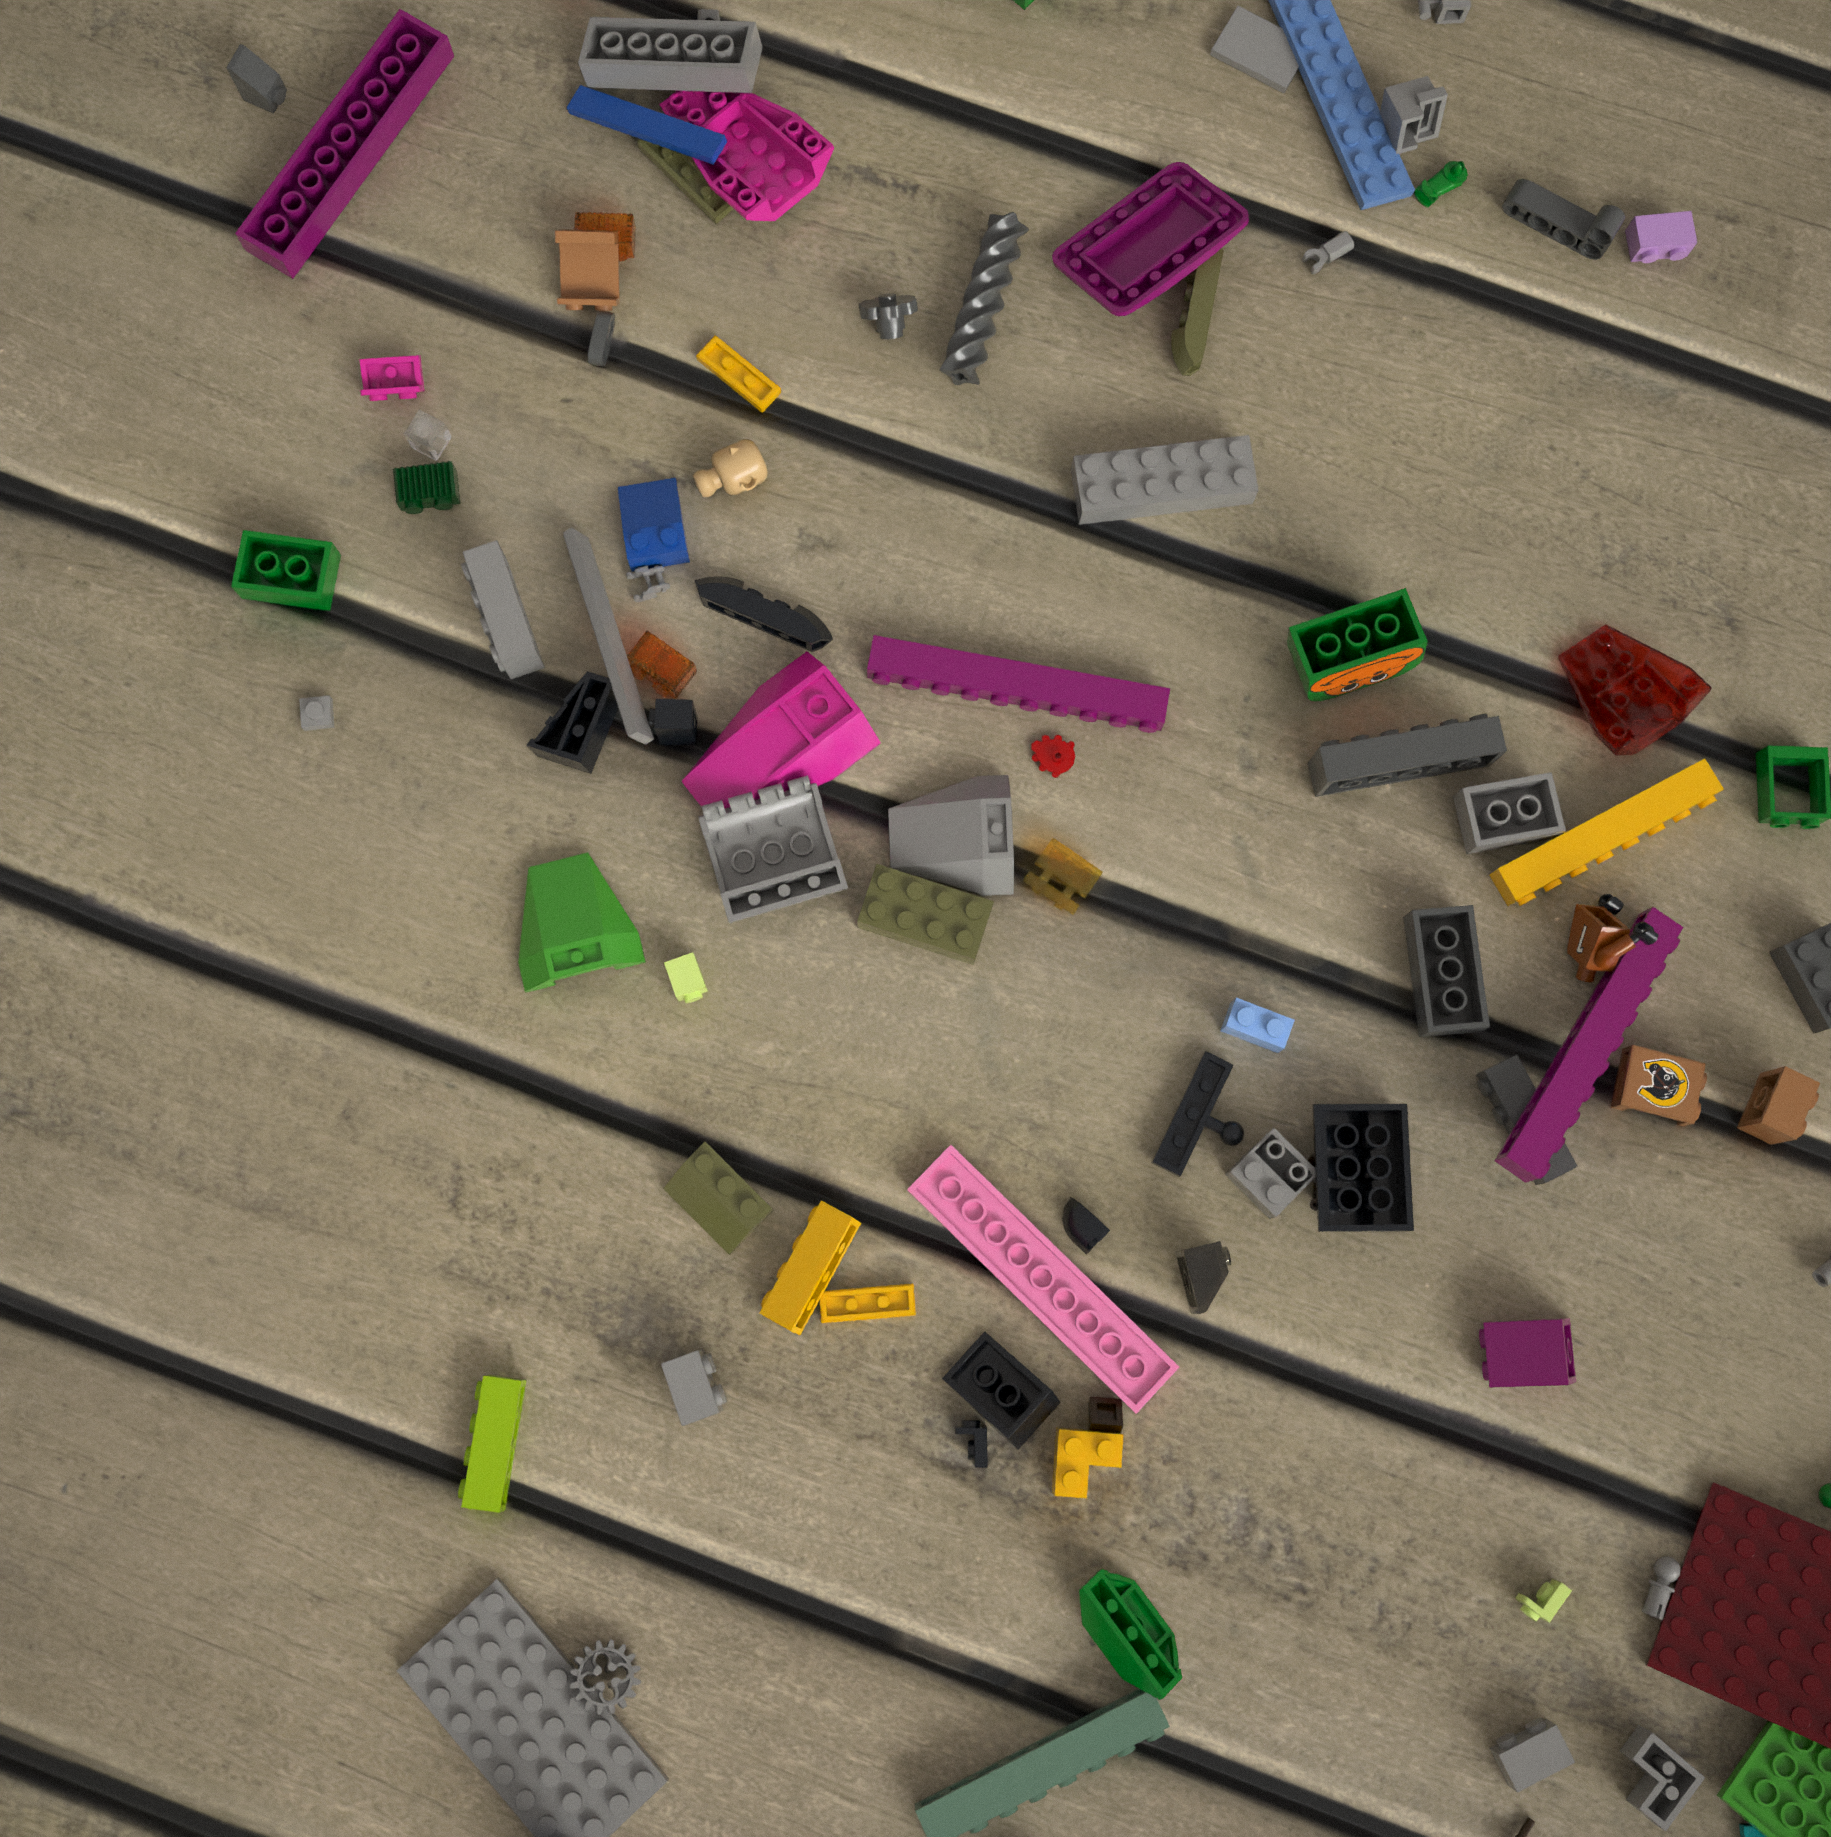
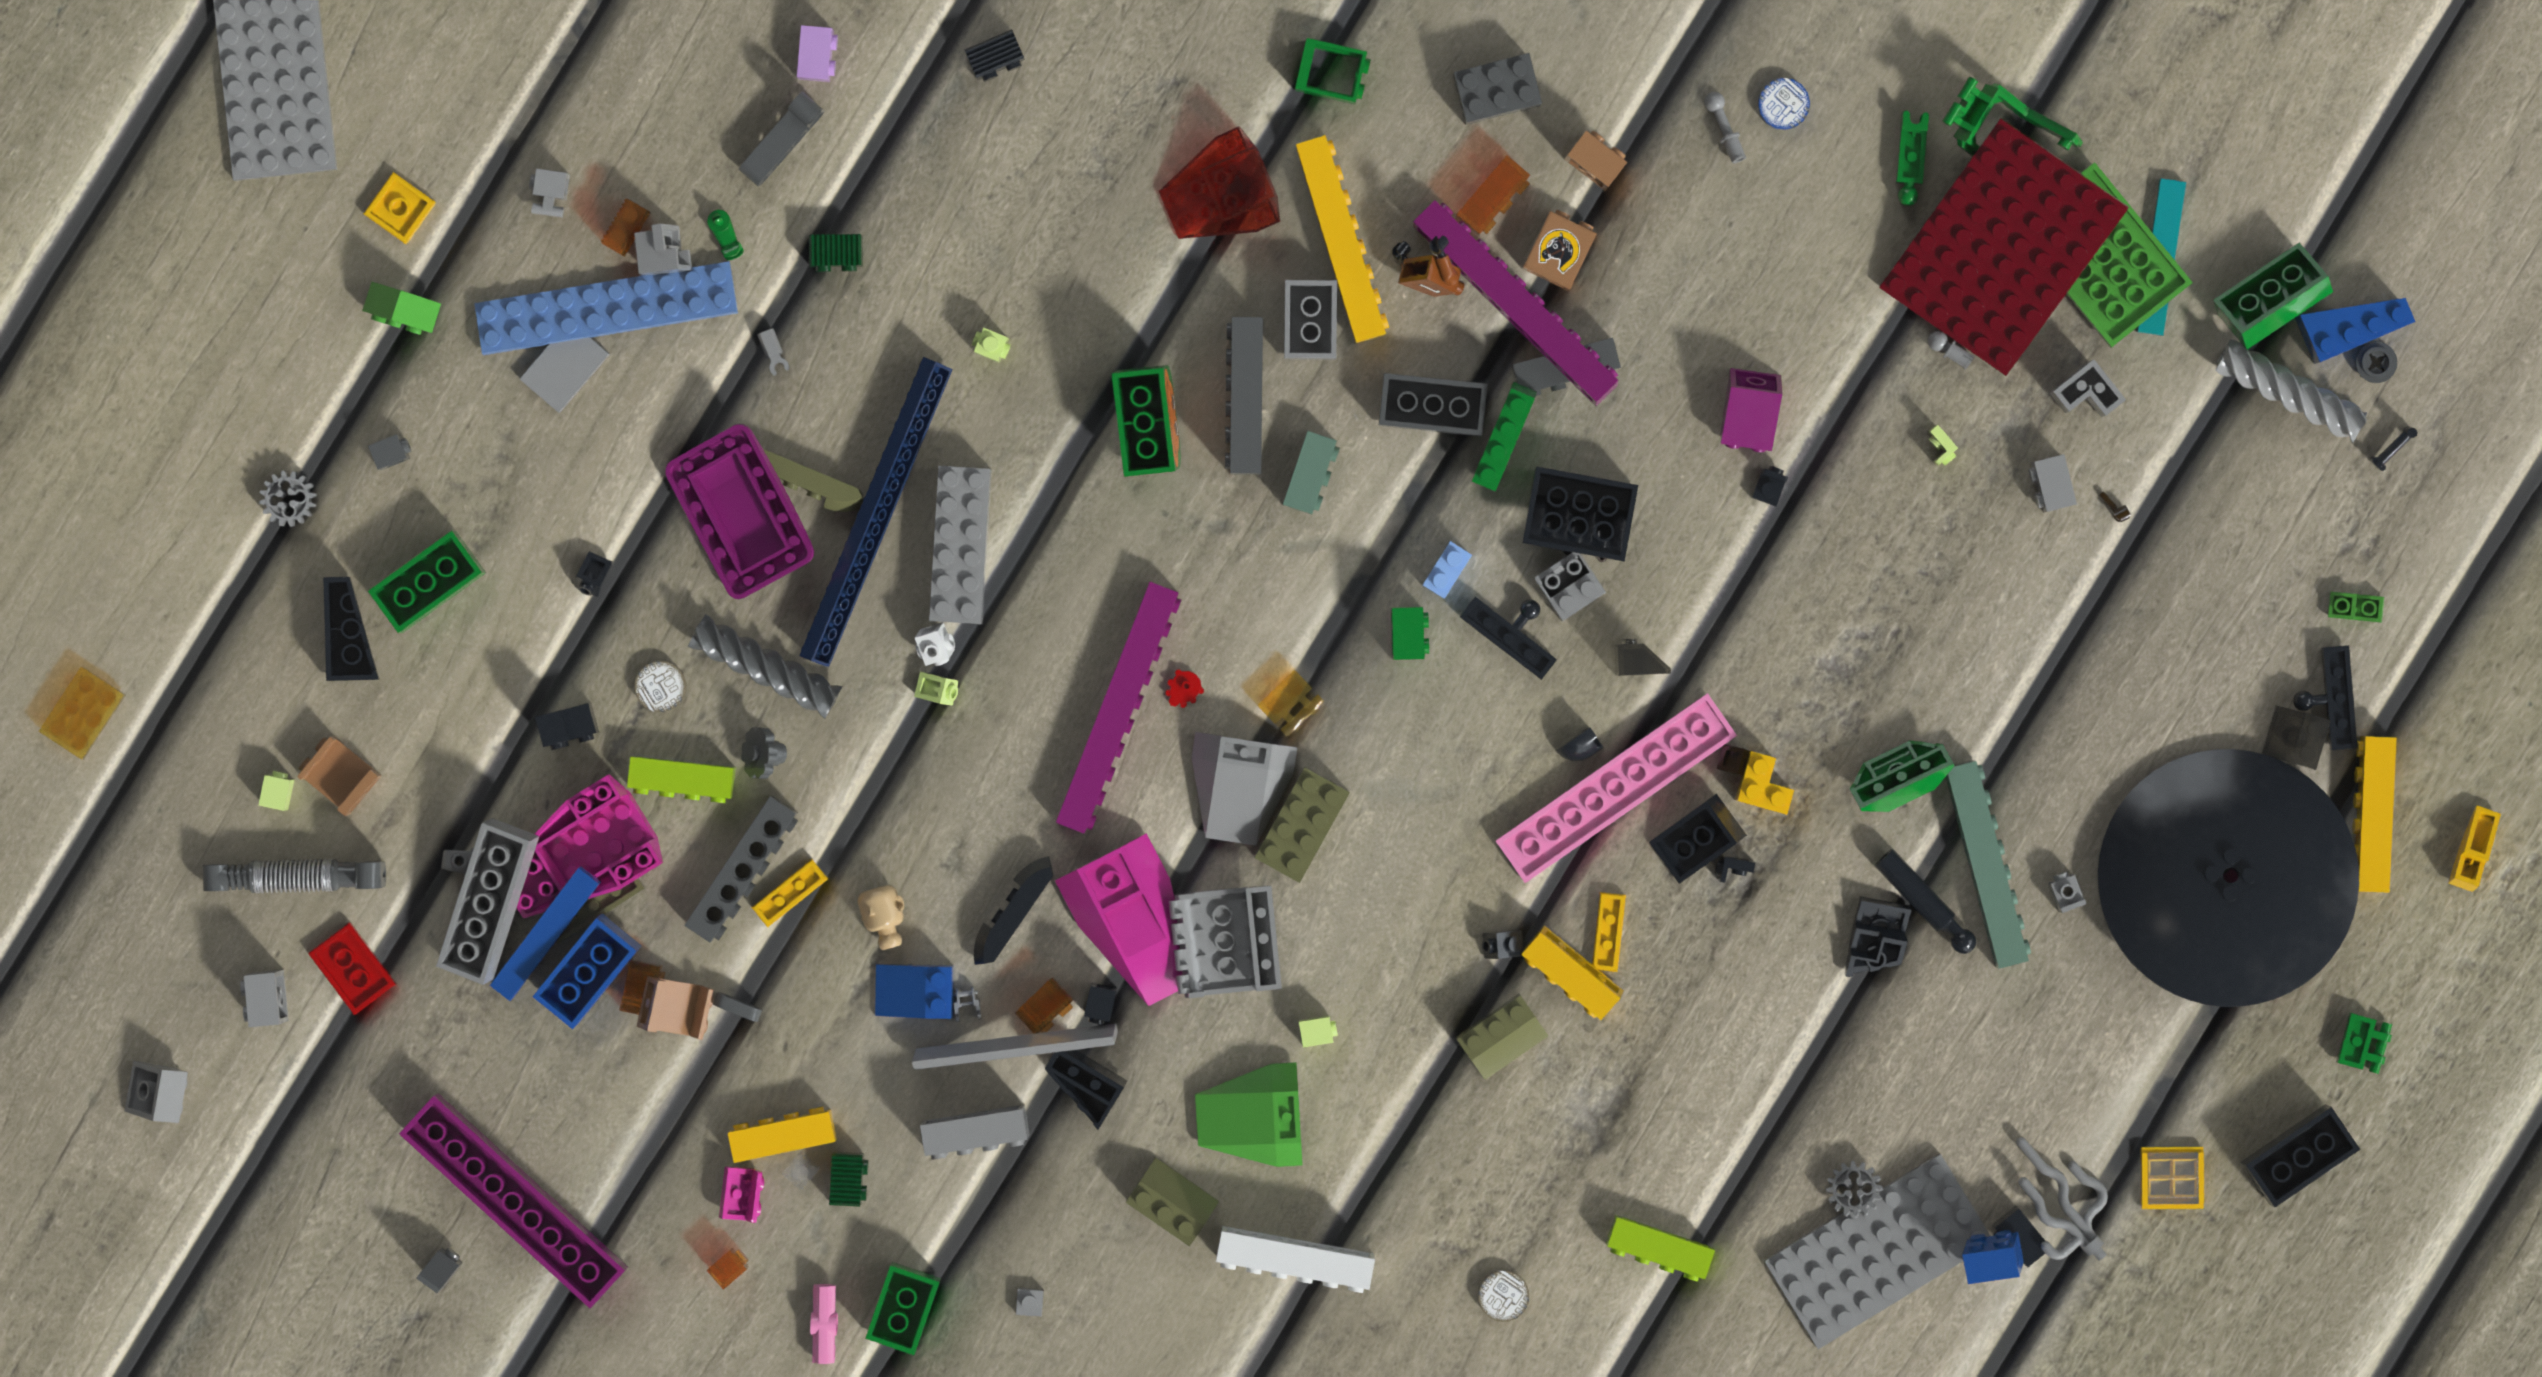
camera: 70 degrees left, 10 degrees up
(257, 491) = (824, 1323): none -> bright pink piece
(306, 378) = (728, 1267): none -> clear orange brick
(405, 1261) = (1503, 1295): none -> tile
(410, 1000) = (1296, 1258): none -> white brick
(457, 849) = (1172, 1201): none -> olive slope
(464, 409) = (782, 1135): none -> yellow brick
(612, 171) = (587, 971): none -> blue brick
(694, 1387) = (1648, 1081): light grey brick -> none
(720, 292) = (699, 920): none -> dark grey brick
(828, 1177) = (1502, 944): none -> black bracket
(844, 236) = (681, 777): none -> lime brick
(874, 105) = (567, 725): none -> black brick
(925, 1642) = (1877, 936): none -> black slope
(939, 201) = (660, 686): none -> tile
(980, 1695) = (1925, 900): none -> black piece
(997, 486) = (936, 688): none -> yellowish green bracket
(1046, 109) = (592, 574): none -> black bracket
(1046, 471) = (934, 644): none -> white brick
(1175, 992) = (1408, 633): none -> green brick
(1181, 384) = (875, 512): none -> dark blue piece
(1332, 848) = (1311, 473): none -> sand green brick
(1393, 472) = (991, 345): none -> yellowish green brick
(1417, 65) = (621, 232): none -> clear orange brick
(1431, 1059) = (1504, 436): none -> green brick
(1444, 1394) = (1770, 486): none -> black bracket
(1454, 294) = (836, 251): none -> dark green brick
(1702, 997) = (1494, 196): none -> clear orange brick
(1710, 420) = (995, 55): none -> black brick

